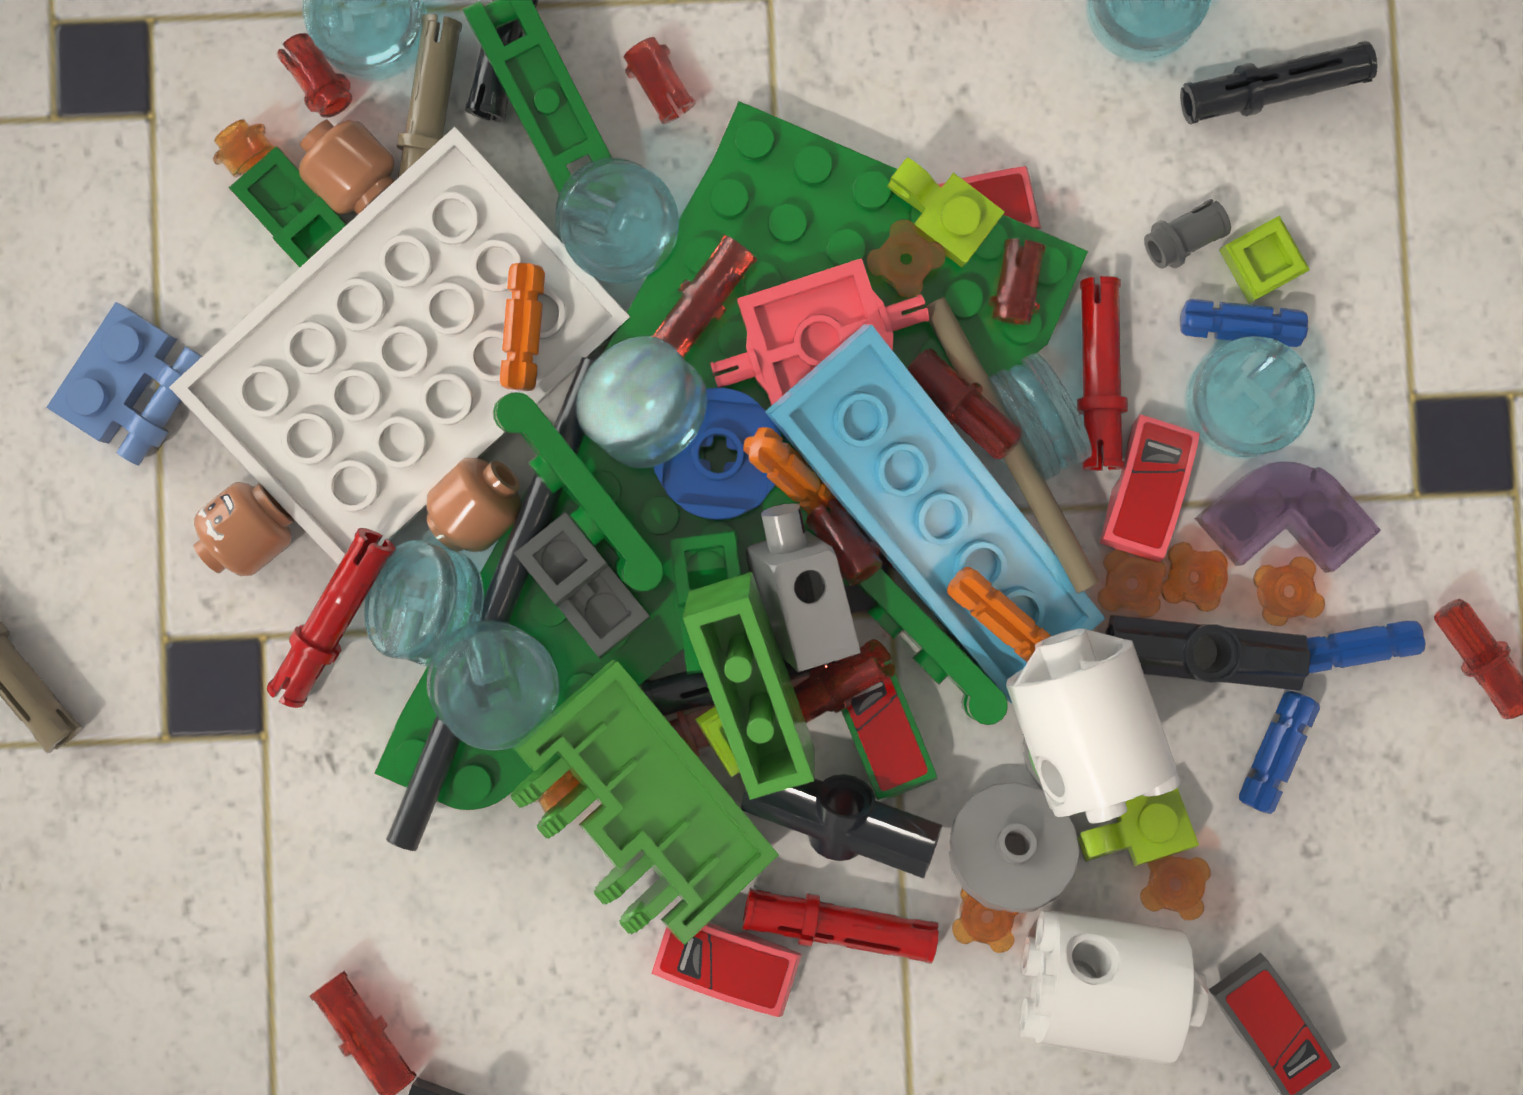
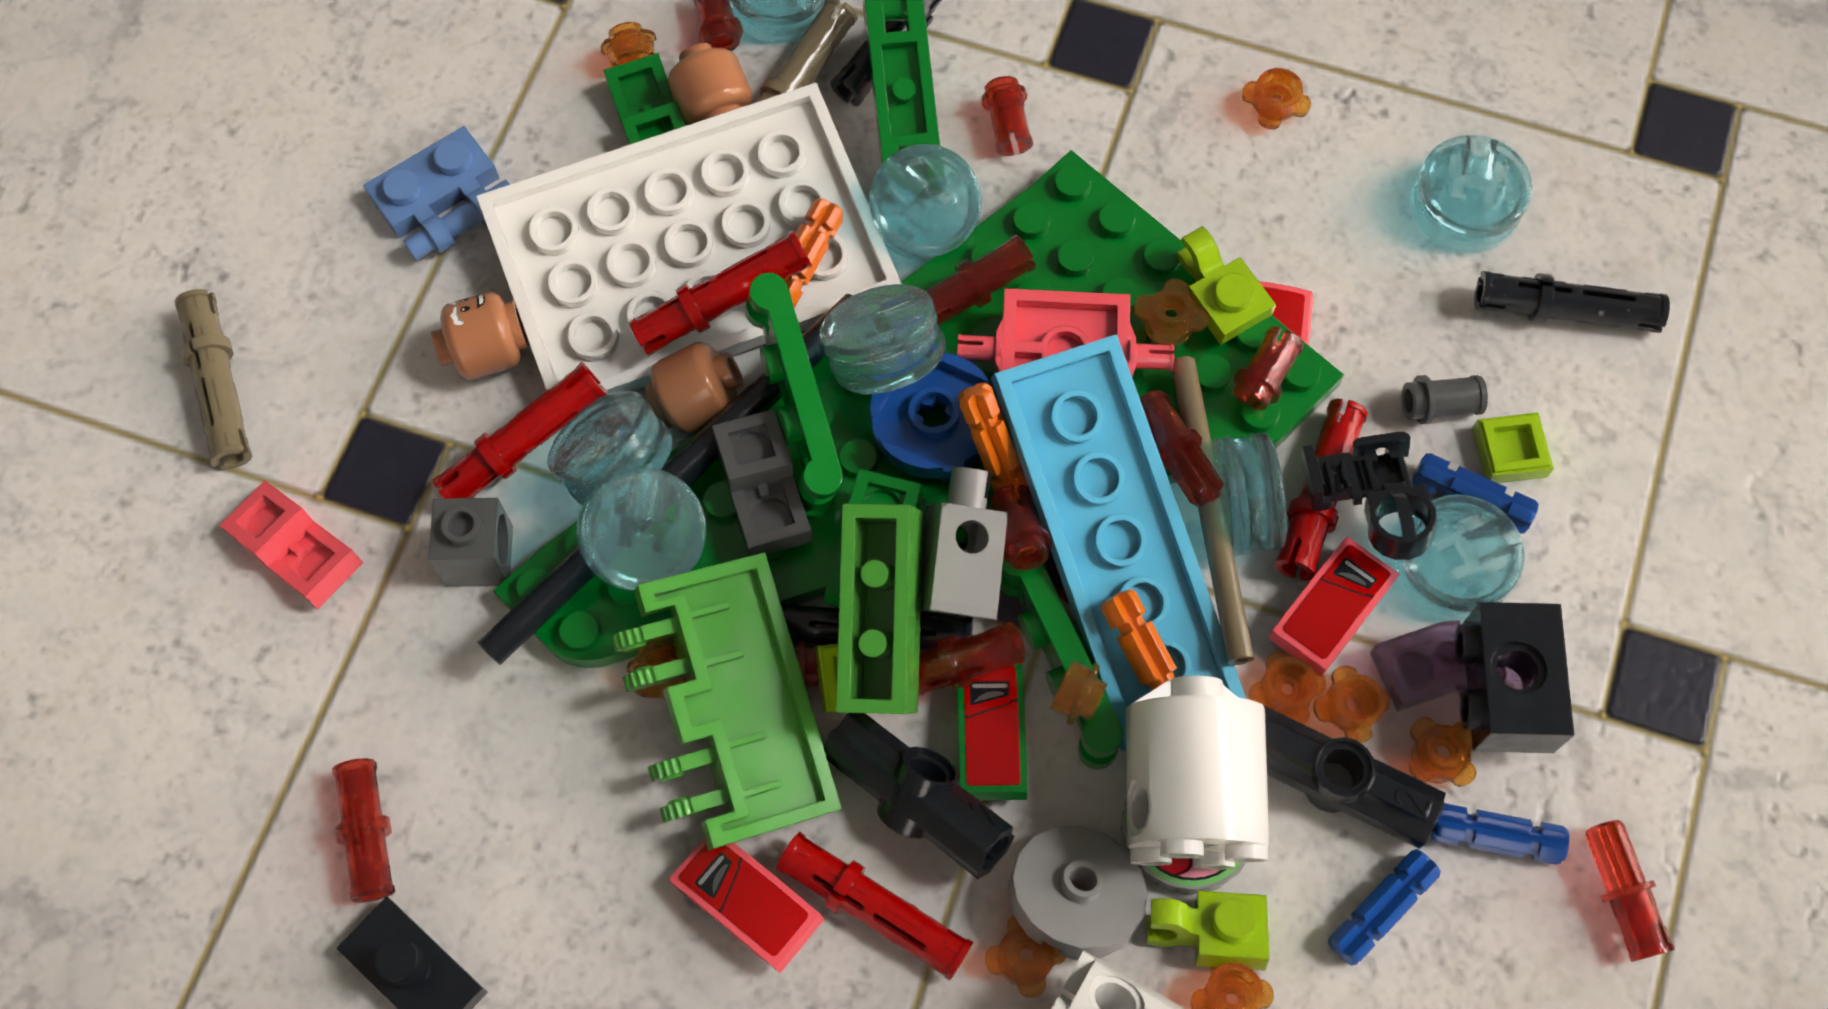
camera: 20 degrees right, 20 degrees down
(163, 798) = (291, 544): none -> coral slope
(332, 739) = (470, 541): none -> dark grey brick
(451, 419) = (706, 301): none -> red pin
(956, 684) = (1078, 692): none -> clear orange plate
(1159, 354) = (1383, 483): none -> black piece
(1373, 529) = (1531, 644): none -> black brick

